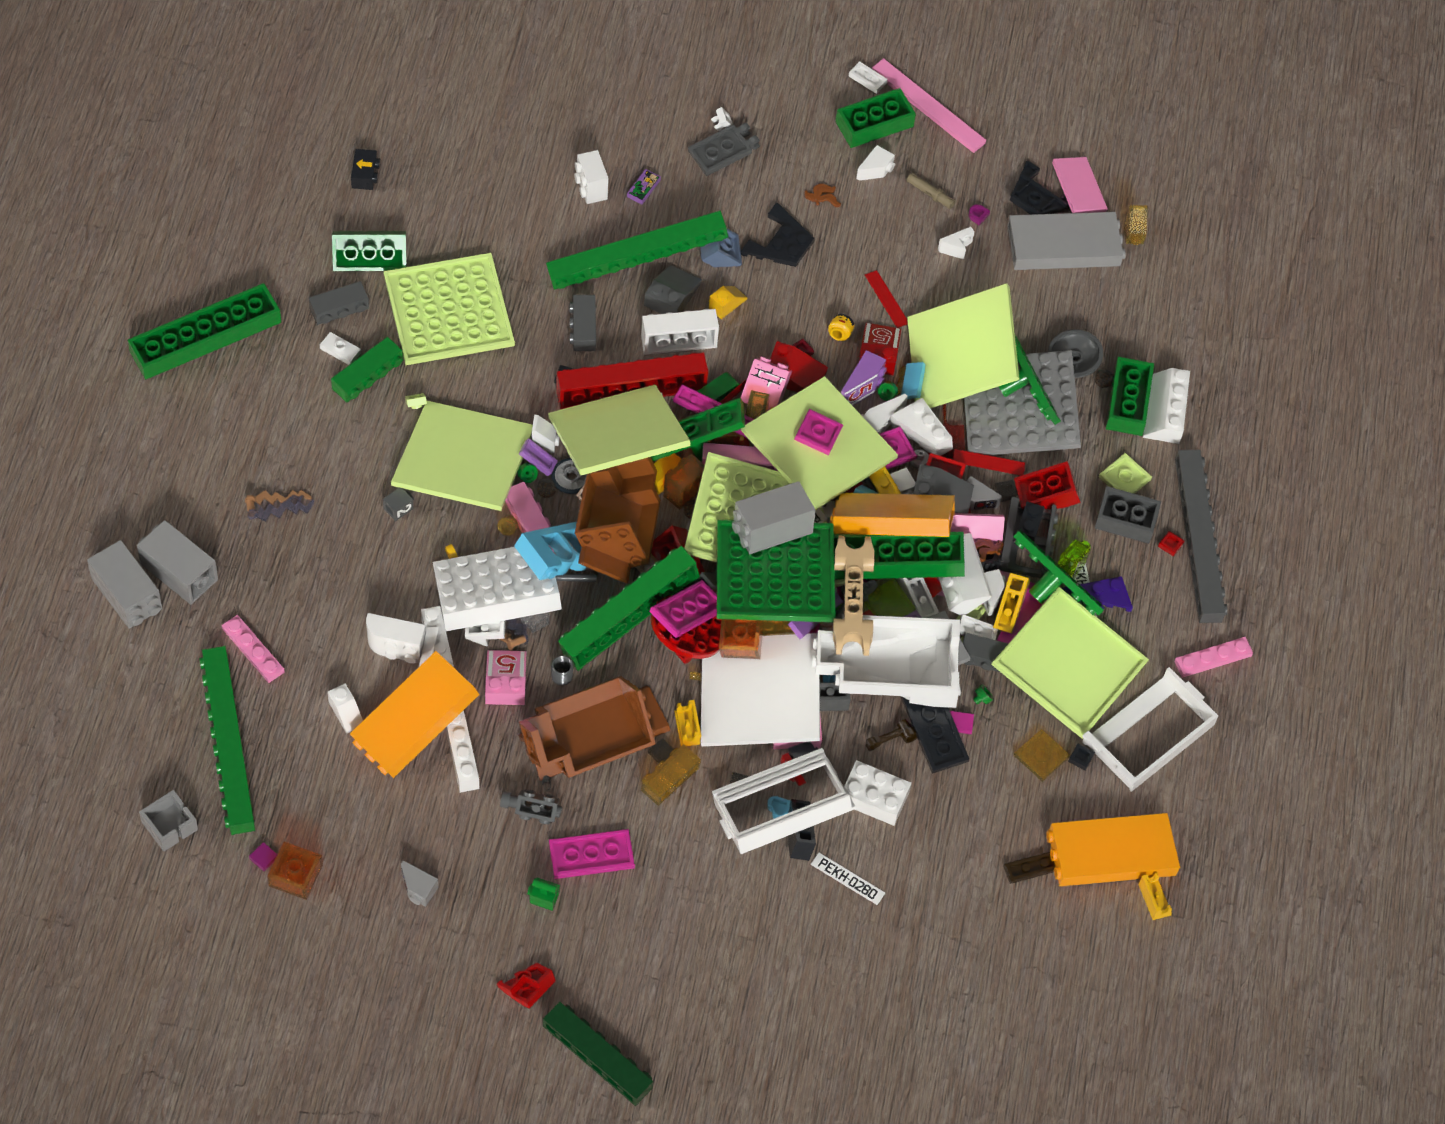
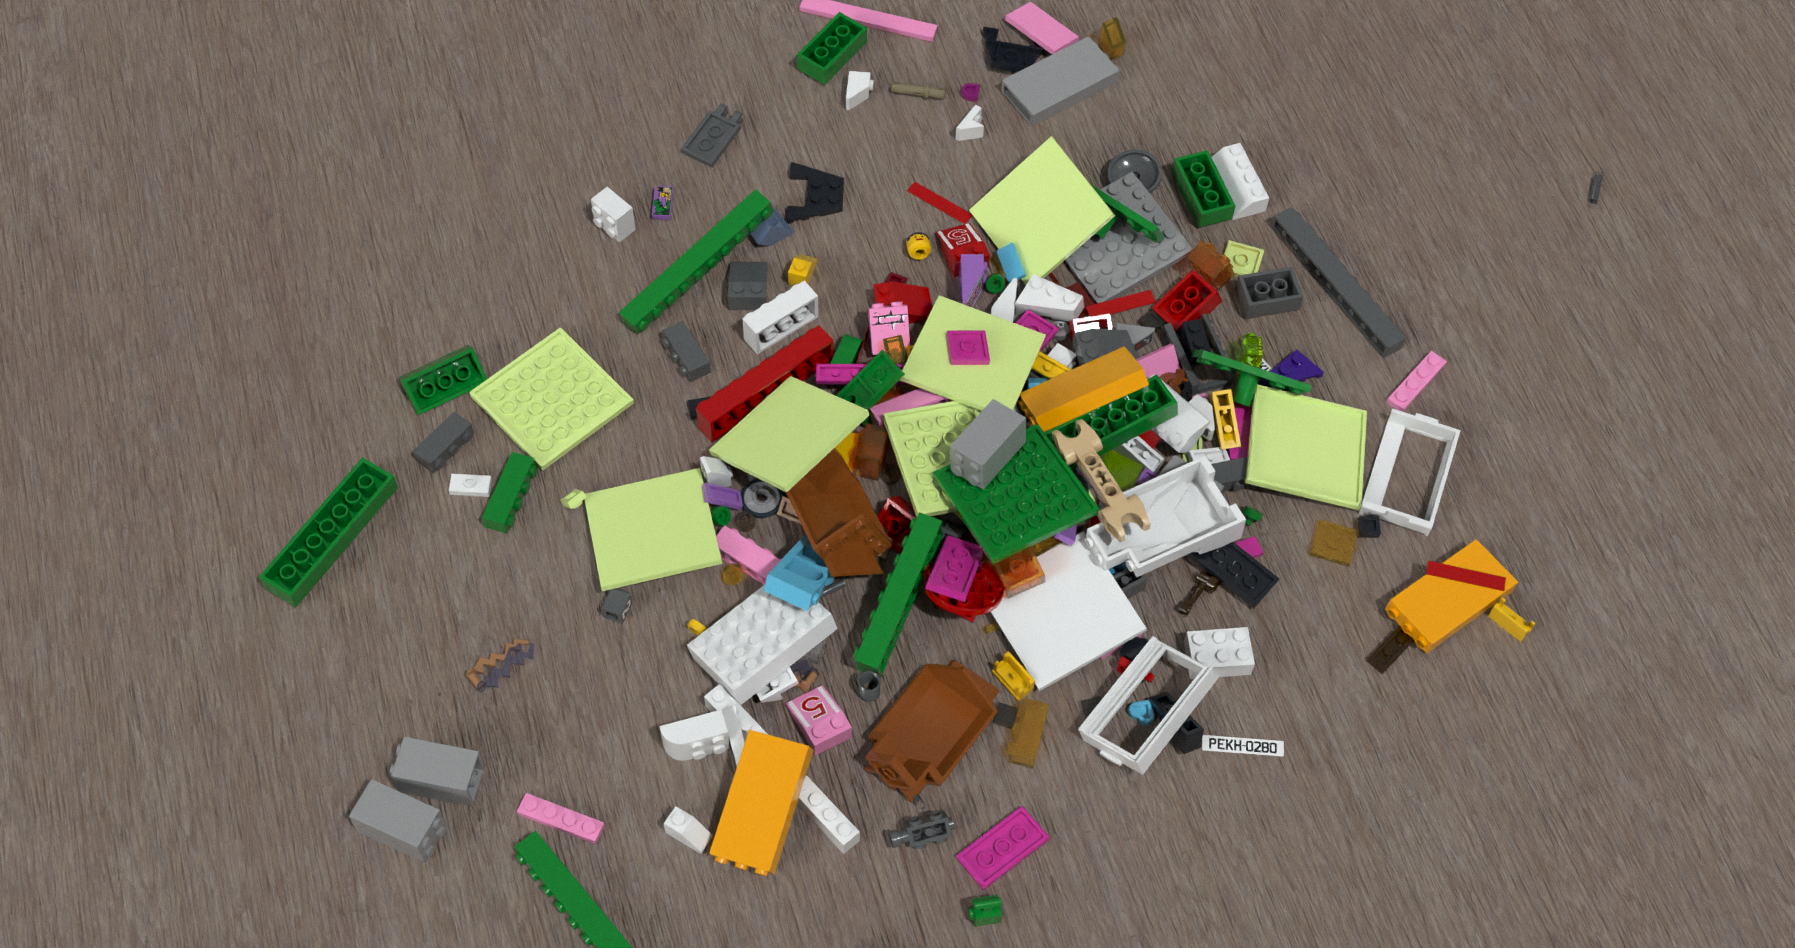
camera: 25 degrees left, 0 degrees up
(364, 169) = (392, 305): black brick -> none
(723, 118) = (696, 109): white tile -> none
(818, 190) = (822, 141): dark orange piece -> none
(868, 77) = (801, 16): white plate -> none
(1089, 465) = (1211, 264): none -> clear orange brick
(1103, 378) = (1168, 184): clear smoke tile -> none
(1135, 838) = (1466, 575): none -> red sticker
(1171, 543) = (1317, 300): red tile -> none

